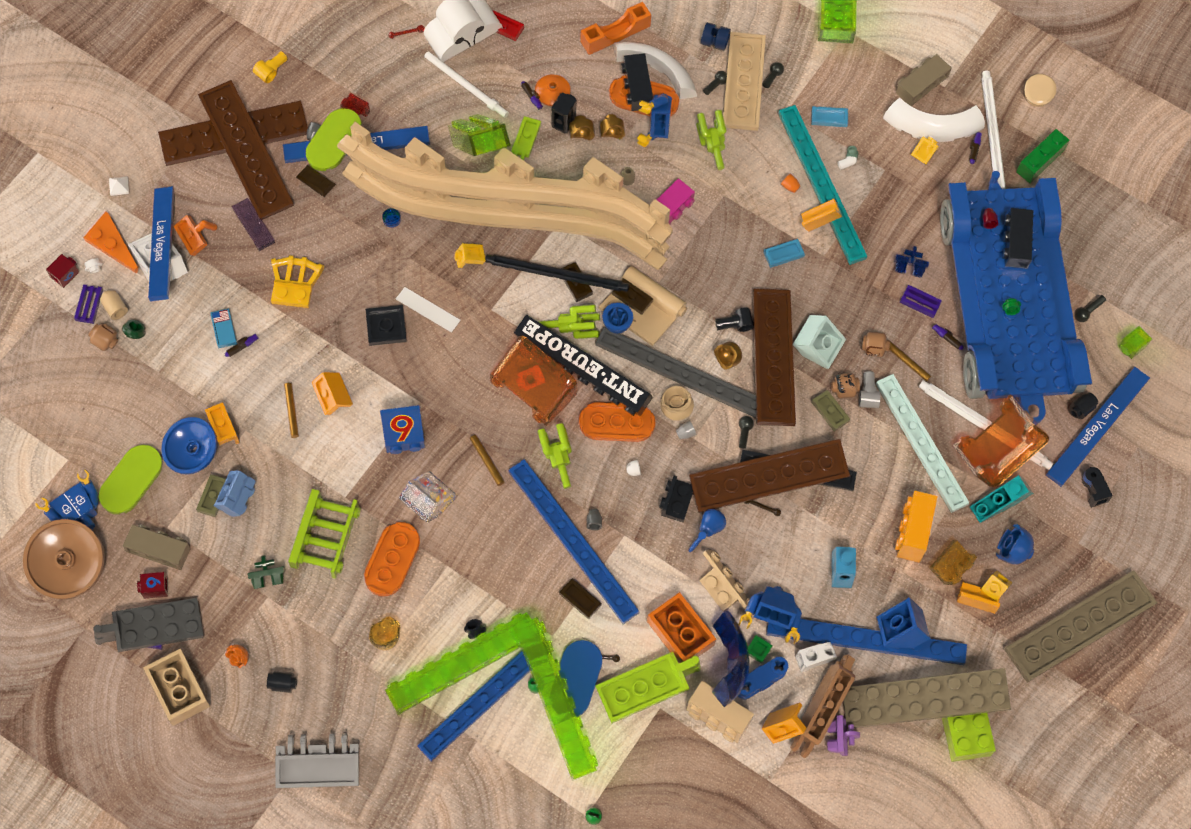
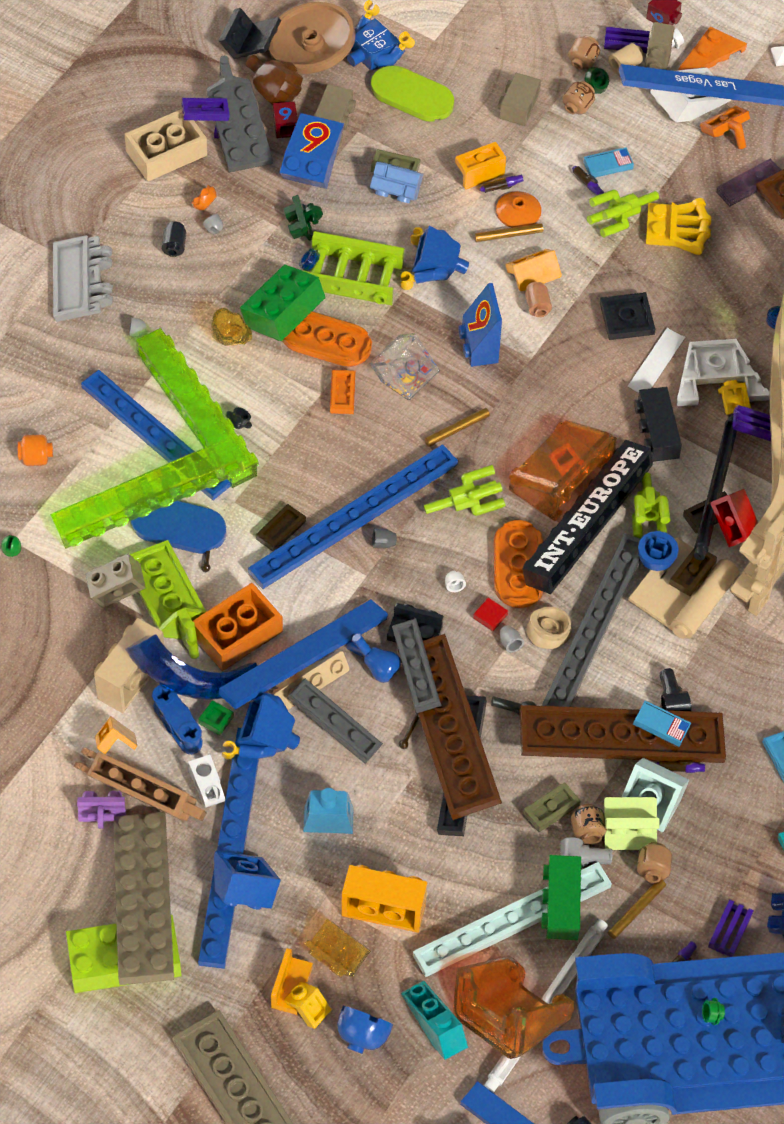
camera: 90 degrees right, 10 degrees down
(53, 612) = (247, 38): none -> black bracket
(111, 275) = (659, 46): none -> dark tan brick
(112, 591) = (275, 79): none -> reddish brown piece
(148, 664) = (205, 109): none -> dark purple tile
(152, 390) = (519, 99): none -> dark tan brick
(154, 344) = (578, 98): none -> medium nougat head
(182, 439) = (451, 134): blue dish -> none
(198, 560) = (312, 151): none -> blue slope
(239, 412) = (502, 184): none -> piece
(266, 648) = (213, 224): none -> light grey hinge
(268, 409) = (518, 209): none -> orange dish
(277, 320) = (618, 209): none -> lime plant
(312, 568) = (309, 259): none -> clear blue tile
(318, 465) = (435, 257): none -> blue torso
(362, 589) = (282, 302): none -> green brick
(366, 390) = (538, 299): none -> nougat brick
(374, 714) = (137, 327): none -> light grey hinge
(435, 265) = (717, 363): none -> white wing
(450, 546) = (342, 392): none -> orange plate
(493, 253) = (755, 418): none -> dark purple tile
(493, 310) = (658, 423): none -> black brick
(500, 797) = (34, 450): none -> orange head
(590, 260) = (735, 517): none -> red brick
(638, 725) = (115, 580): none -> dark tan brick
(663, 444) = (490, 614): none -> red tile
(710, 578) = (302, 654): none -> blue tile
(718, 496) = (416, 666): none -> dark grey tile
(728, 355) = (621, 683): pearl gold piece -> none
(763, 559) = (335, 721): none -> dark grey tile
(768, 327) = (662, 723): none -> dark azure tile
(794, 312) = (682, 766): none -> dark brown piece
(845, 355) = (630, 822): none -> yellowish green bracket
(912, 404) = (562, 897): none -> green brick

